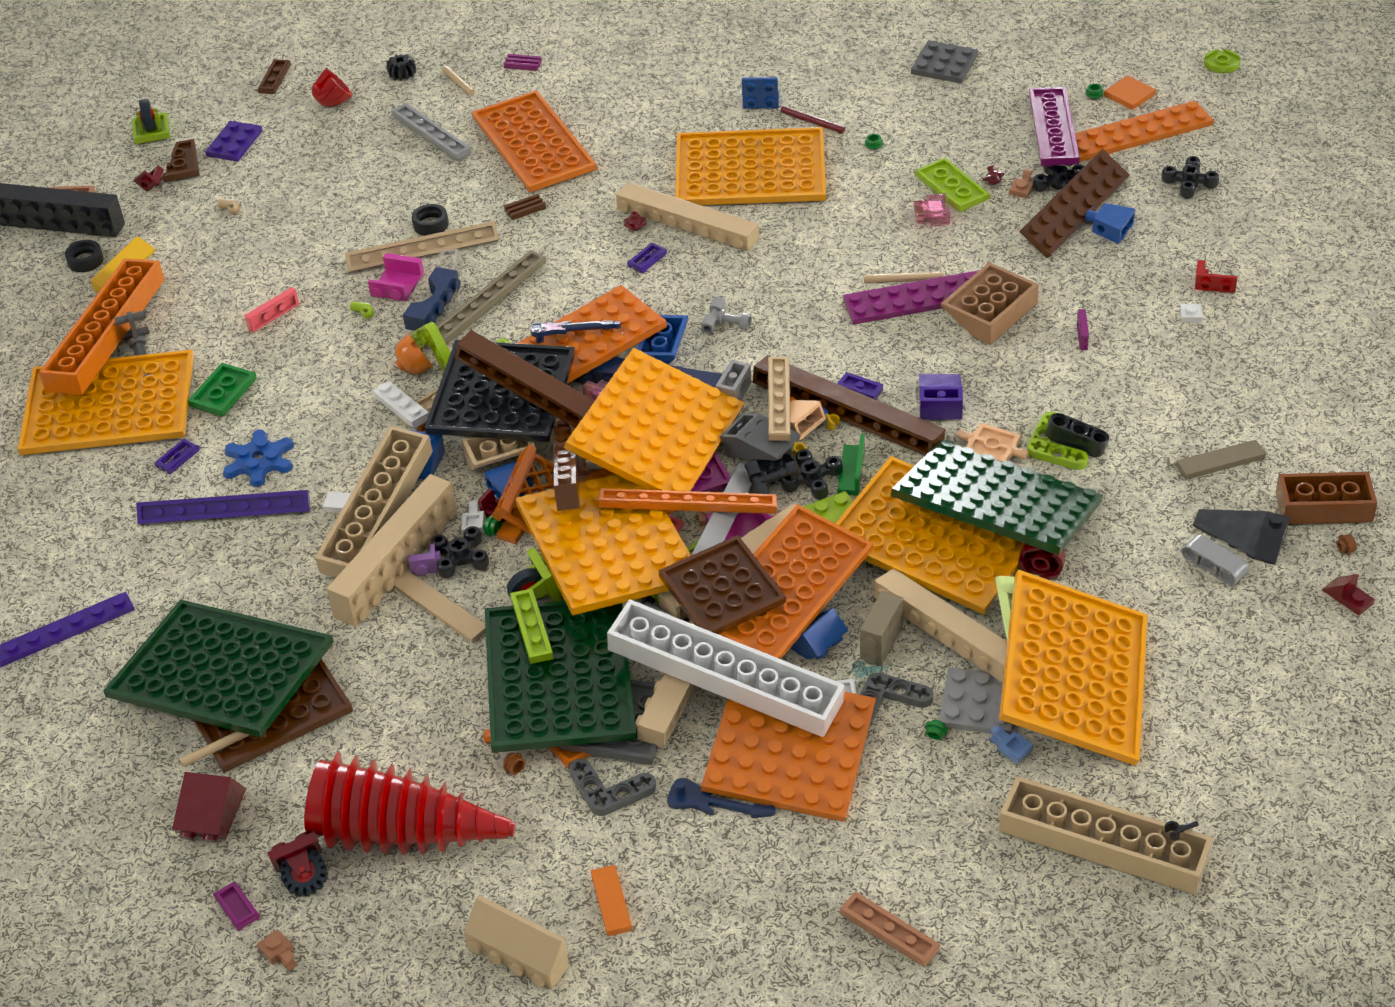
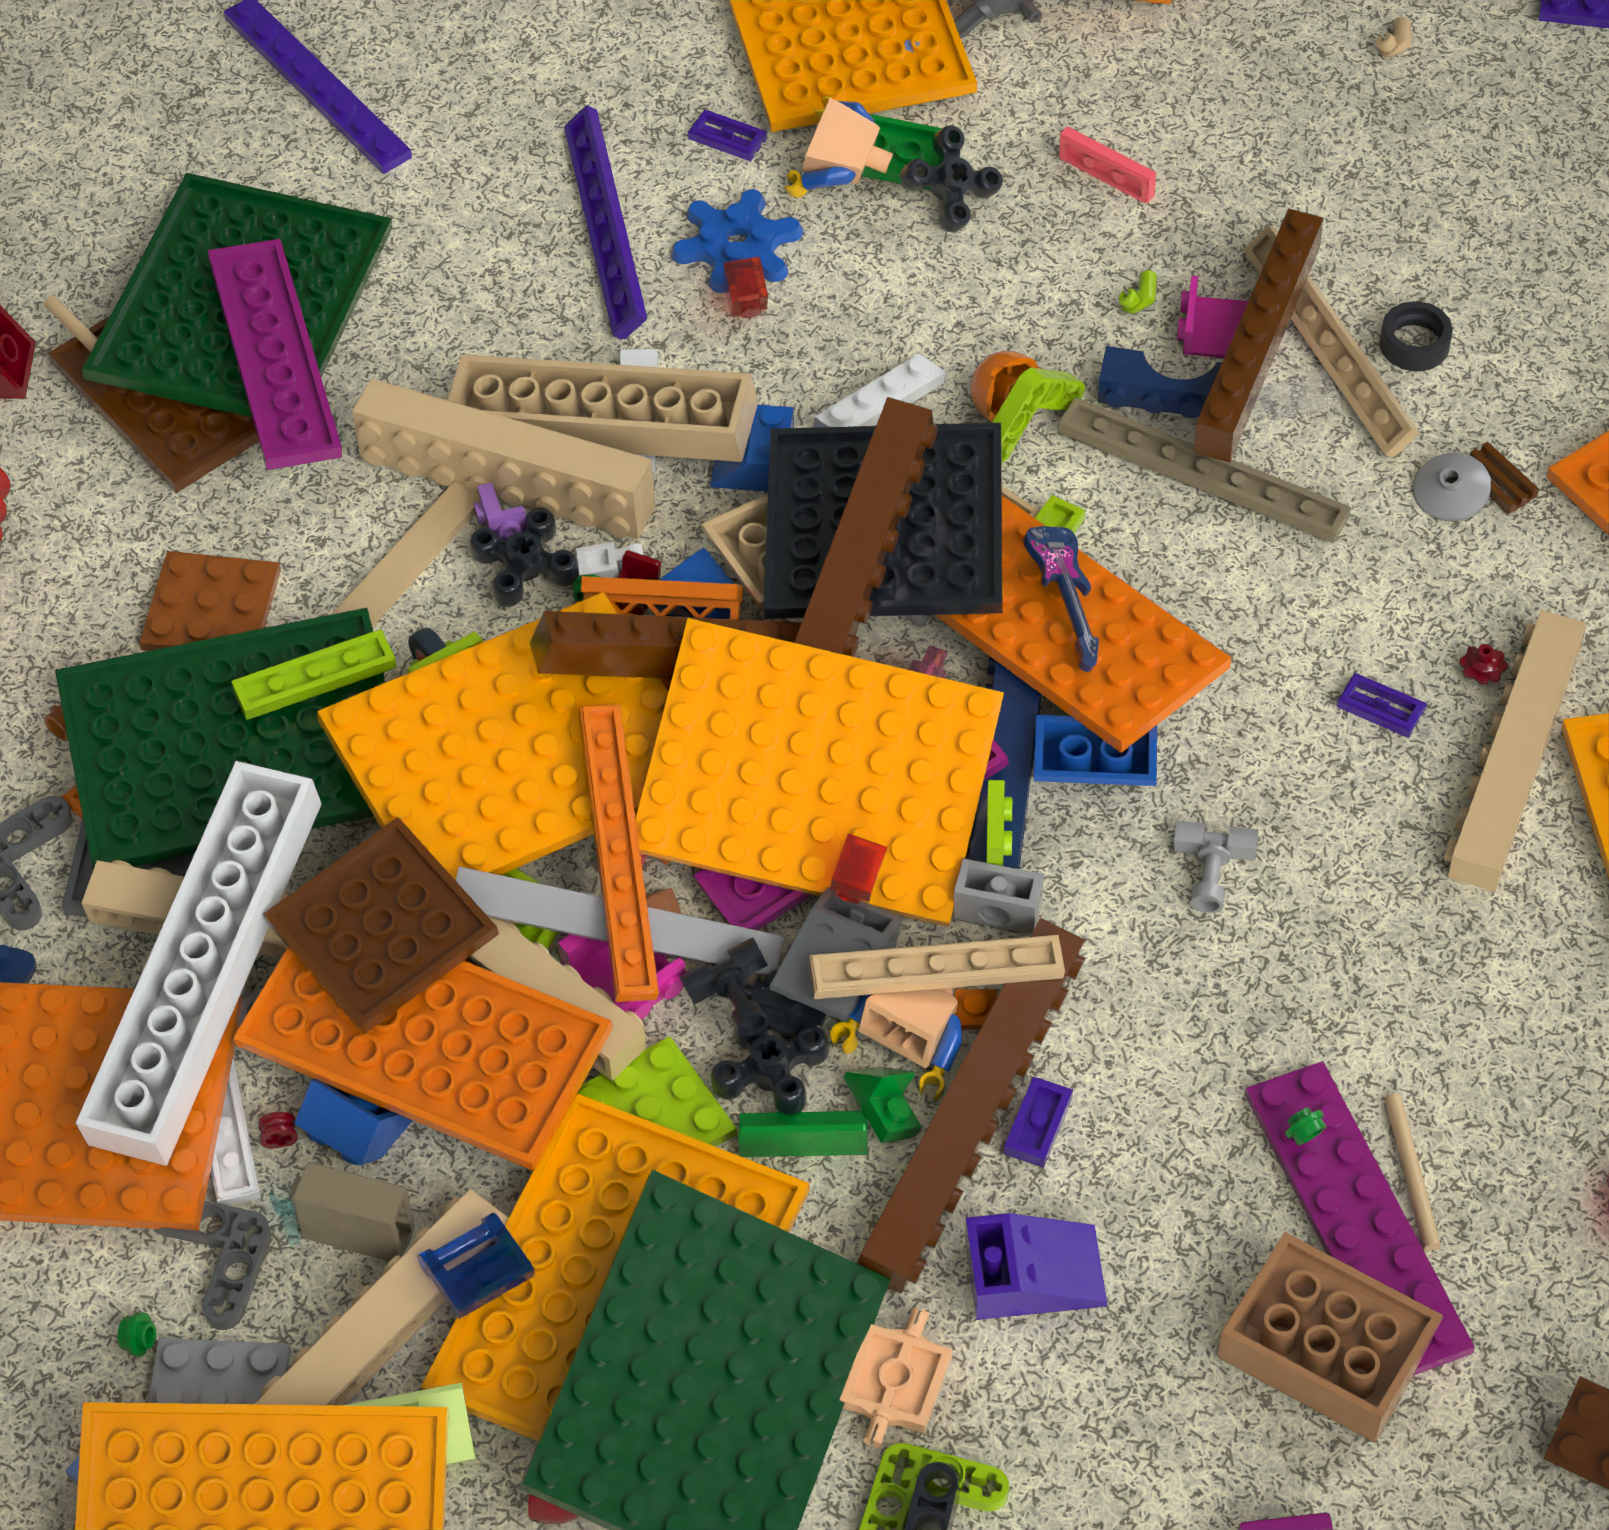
camera: 80 degrees right, 10 degrees up
(221, 397) = (839, 148): none -> light nougat torso
(260, 362) = (951, 178): none -> black gear
(281, 639) = (274, 355): none -> magenta plate
(302, 449) = (745, 287): none -> clear red brick
(424, 255) = (1258, 335): none -> reddish brown brick
(445, 695) = (208, 598): none -> dark orange plate
(526, 220) = (1457, 499): none -> light grey dish
(704, 371) = (999, 810): none -> lime plate
(719, 415) = (858, 869): none -> clear red brick
(818, 666) = (277, 1130): none -> dark red bush
(834, 437) = (882, 1101): none -> green slope
(884, 295) = (1305, 1126): none -> green plate
(929, 569) = (484, 1274): none -> clear blue plate

